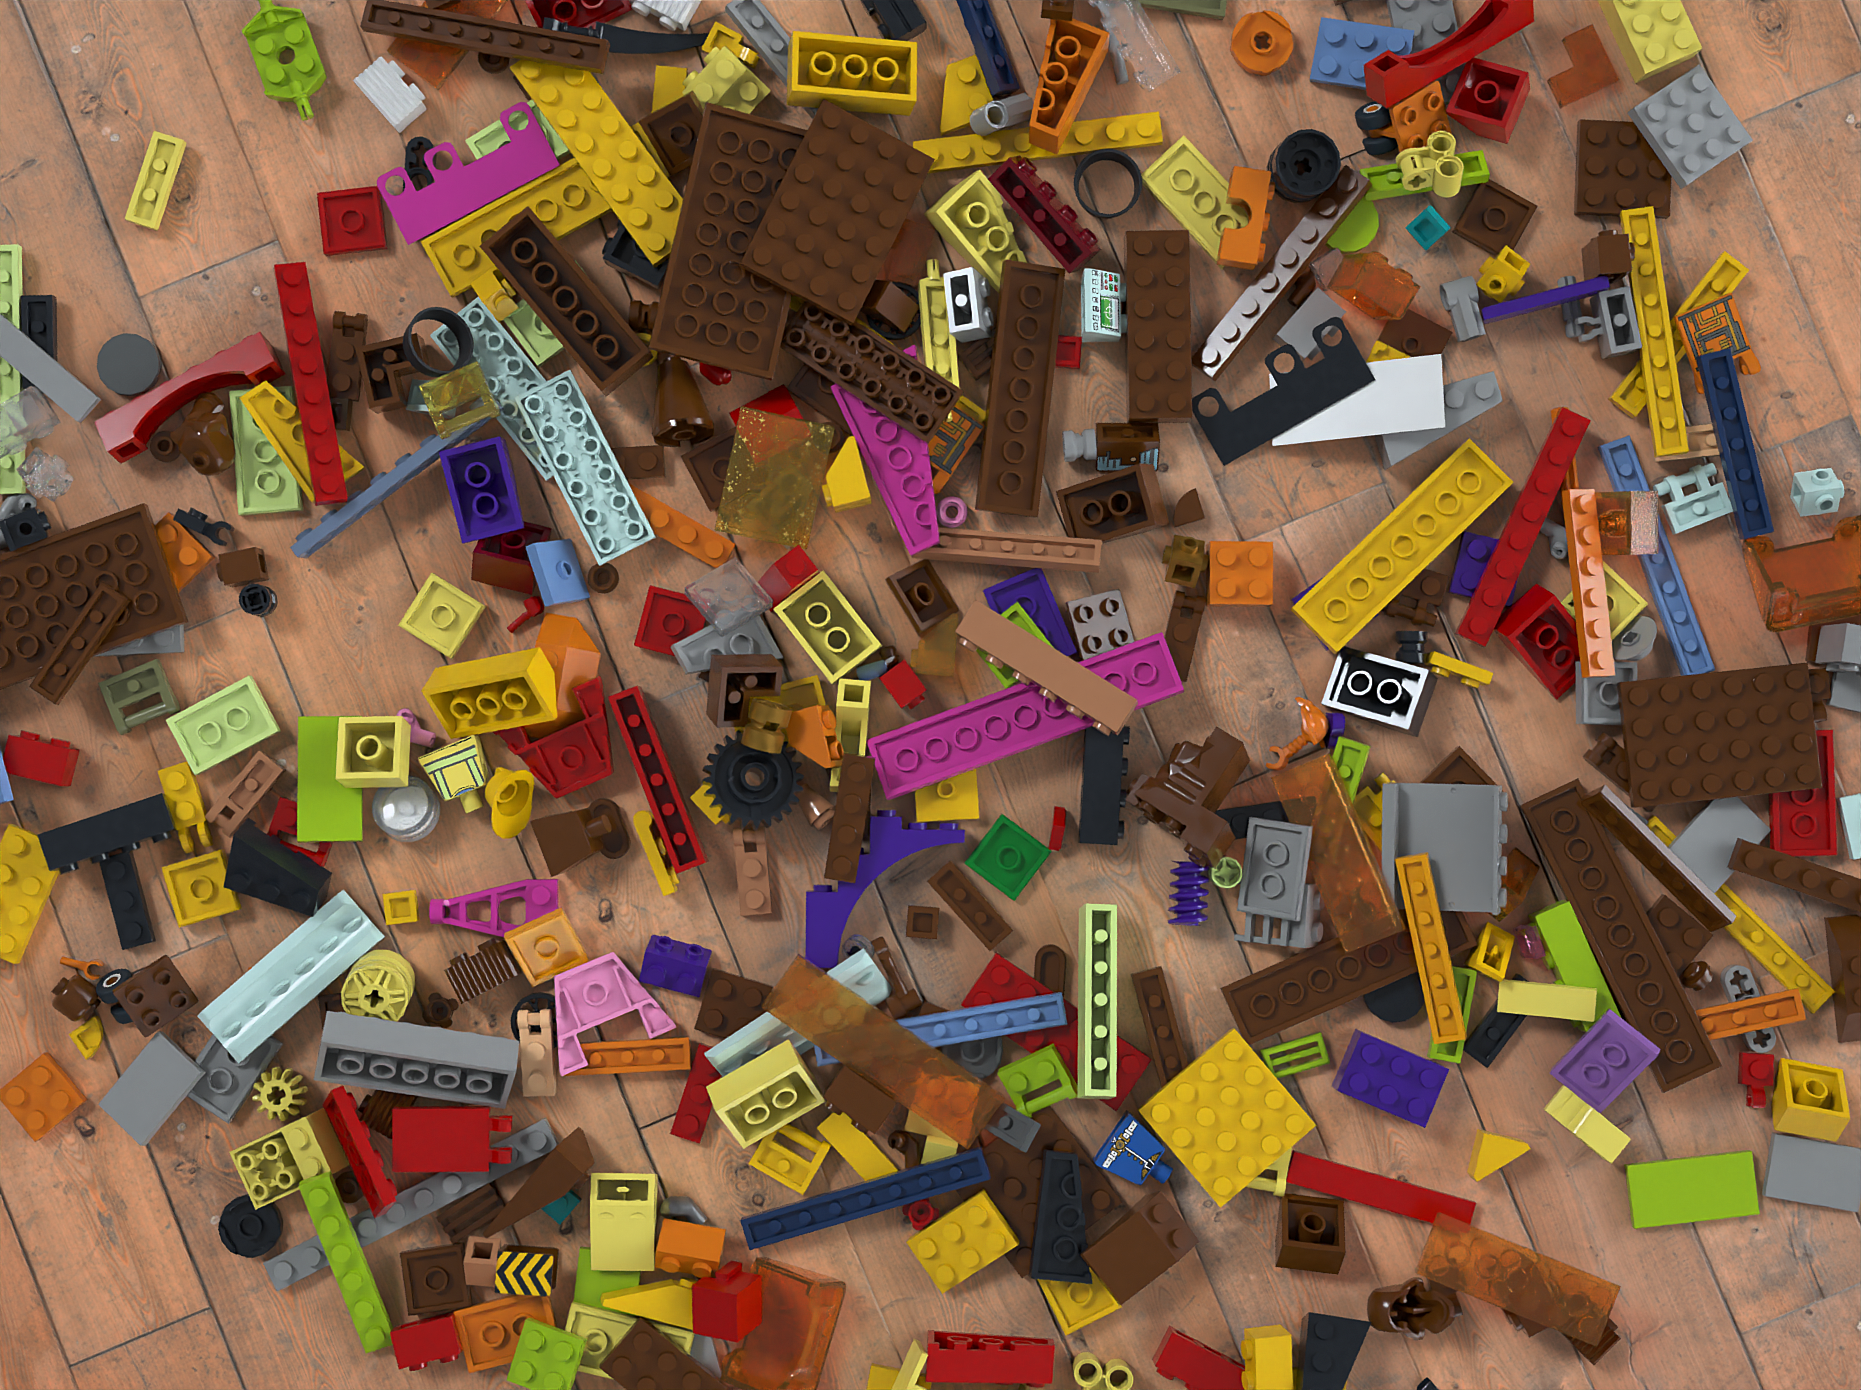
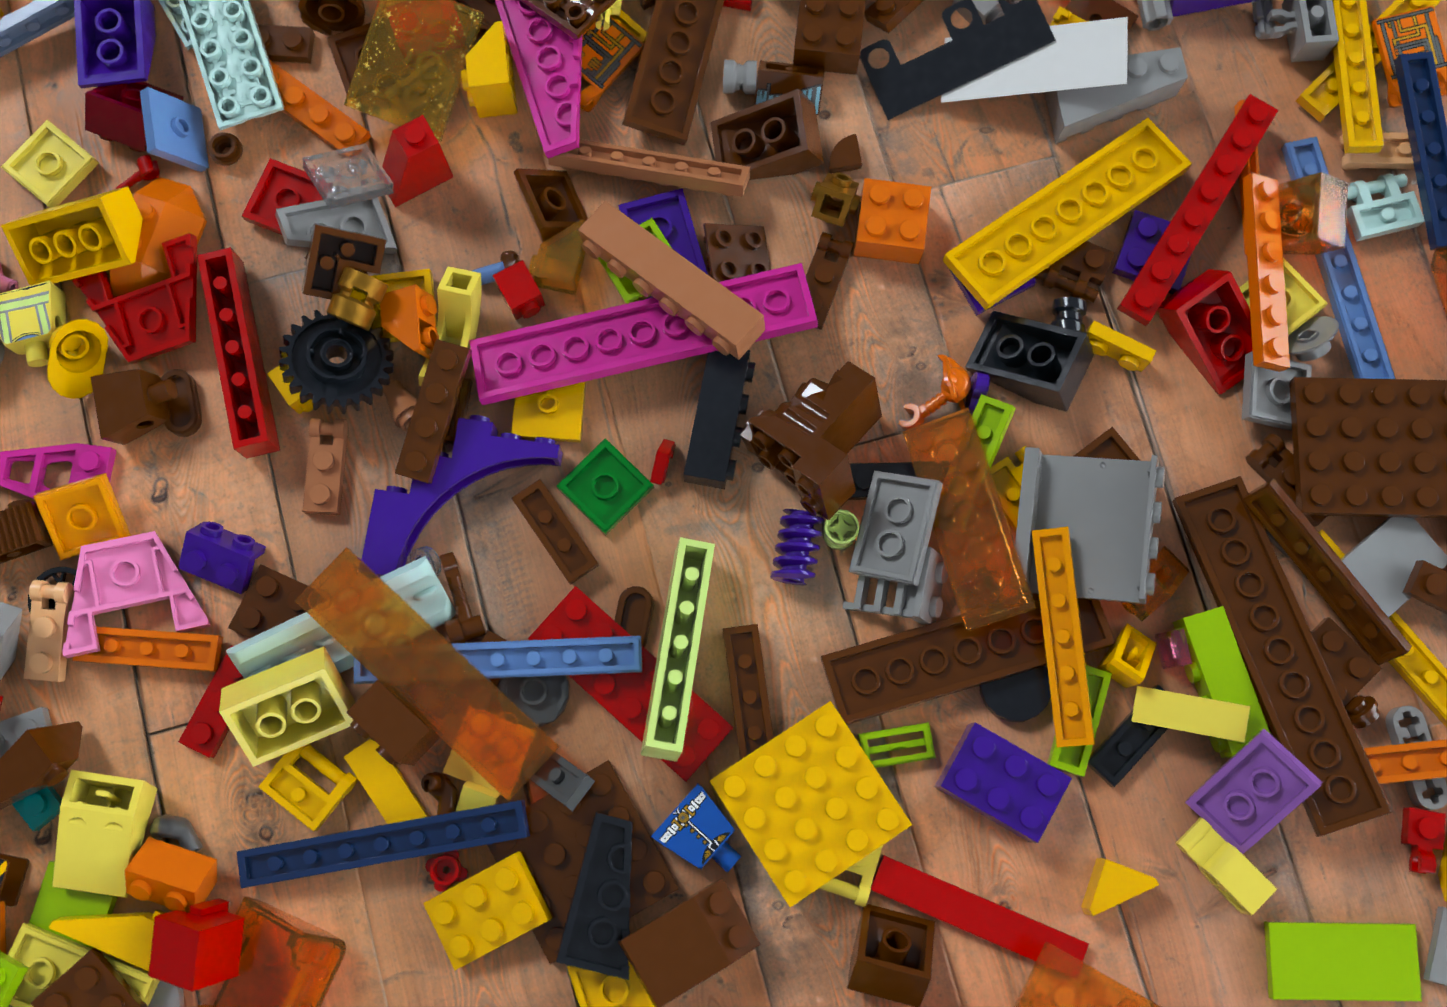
camera: 10 degrees right, 10 degrees down
(655, 851) = (227, 459): yellow plate -> none
(827, 627) = (447, 218): light yellow brick -> none
(922, 922) = (500, 542): reddish brown plate -> none
(951, 502) = (598, 119): bright pink plate -> none
(1034, 1072) = (598, 724): lime plate -> none
(1556, 538) = (1233, 228): light grey arm -> none

